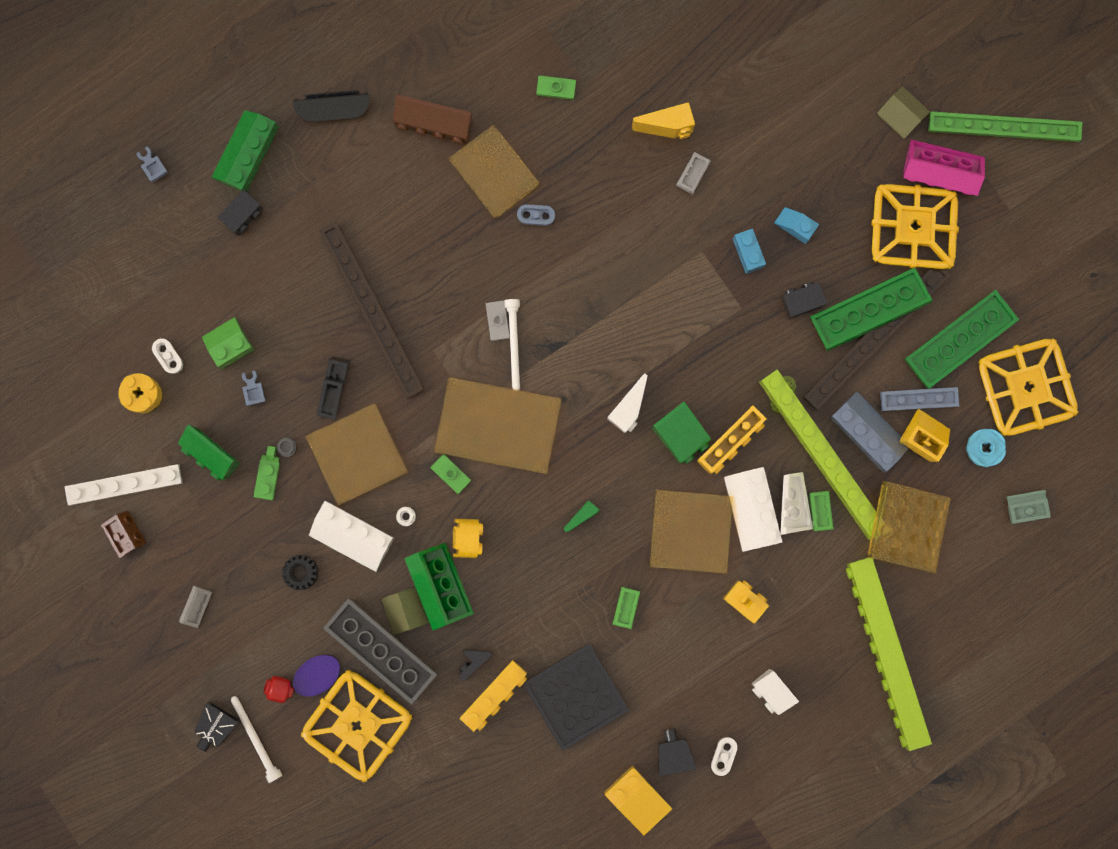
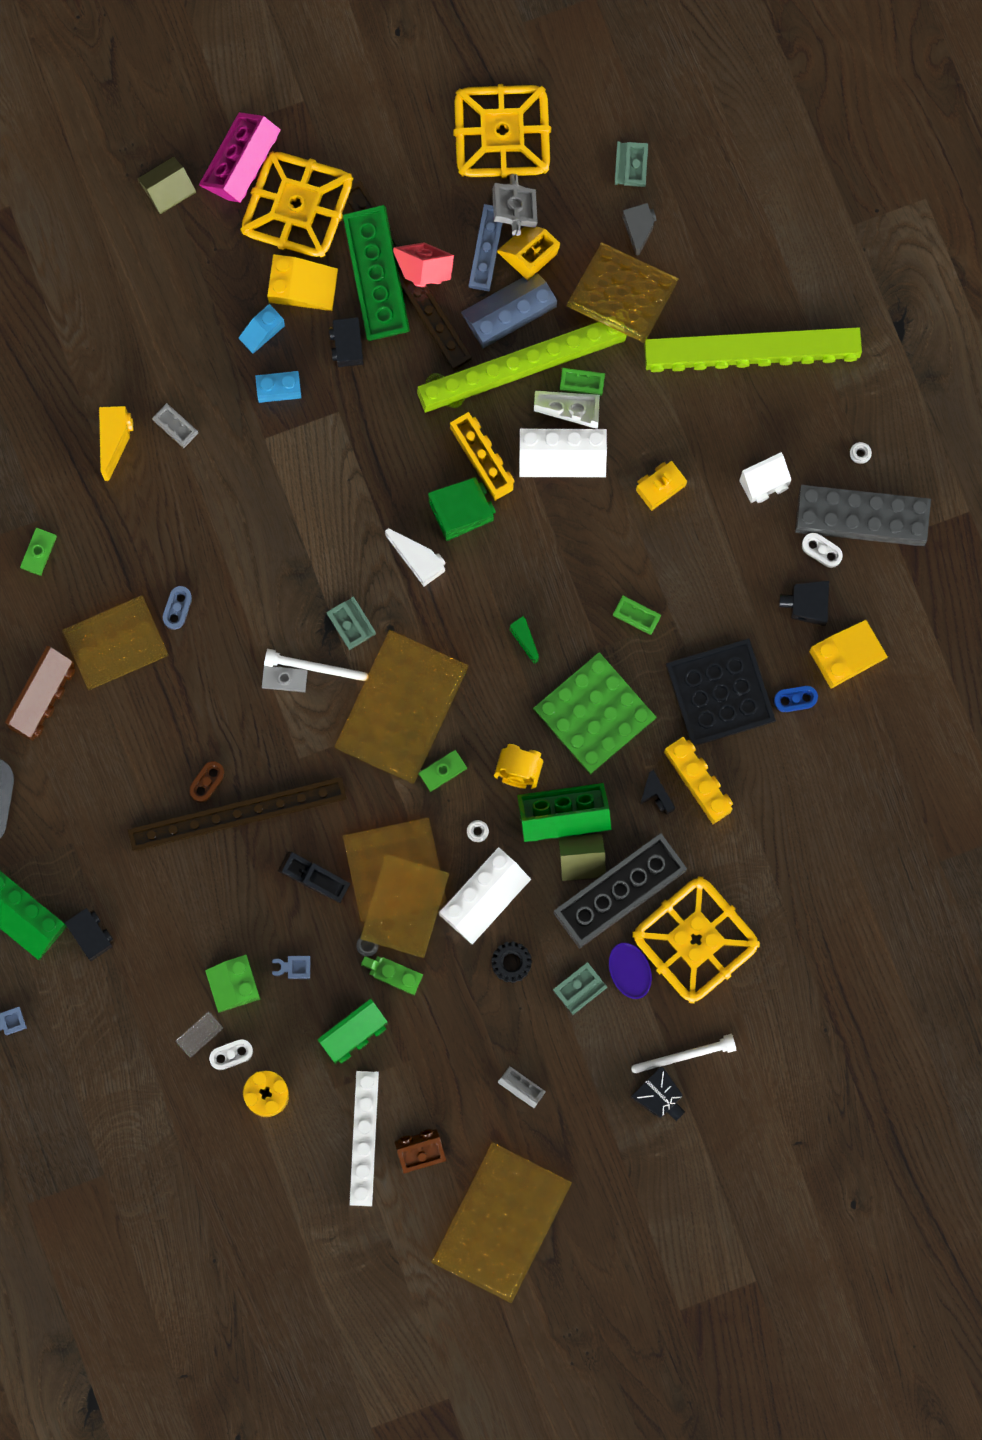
camera: 80 degrees left, 5 degrees down
(79, 617) = (501, 1222): none -> clear yellow plate
(179, 326) = (199, 1034): none -> clear tile
(278, 689) = (635, 1015): red head -> none
(291, 636) = (580, 988): none -> sand green plate
(324, 470) = (404, 906): none -> clear yellow plate
(393, 278) = (207, 782): none -> reddish brown plate
(532, 592) = (594, 713): none -> bright green plate
(558, 364) = (351, 623): none -> sand green plate
(586, 763) = (795, 698): none -> blue plate
(691, 531) = (570, 525): clear yellow plate -> none
(763, 785) = (863, 515): none -> dark grey brick
(820, 776) = (860, 446): none -> white plate
(846, 248) = (301, 283): none -> yellow slope
(889, 348) = (424, 263): none -> coral slope
(961, 339) = (433, 186): green plate -> none
(963, 414) = (514, 205): none -> light grey plate
(974, 527) = (639, 225): none -> dark grey slope
(997, 447) = (553, 203): medium azure plate -> none
(1005, 126) = (211, 82): bright green plate -> none

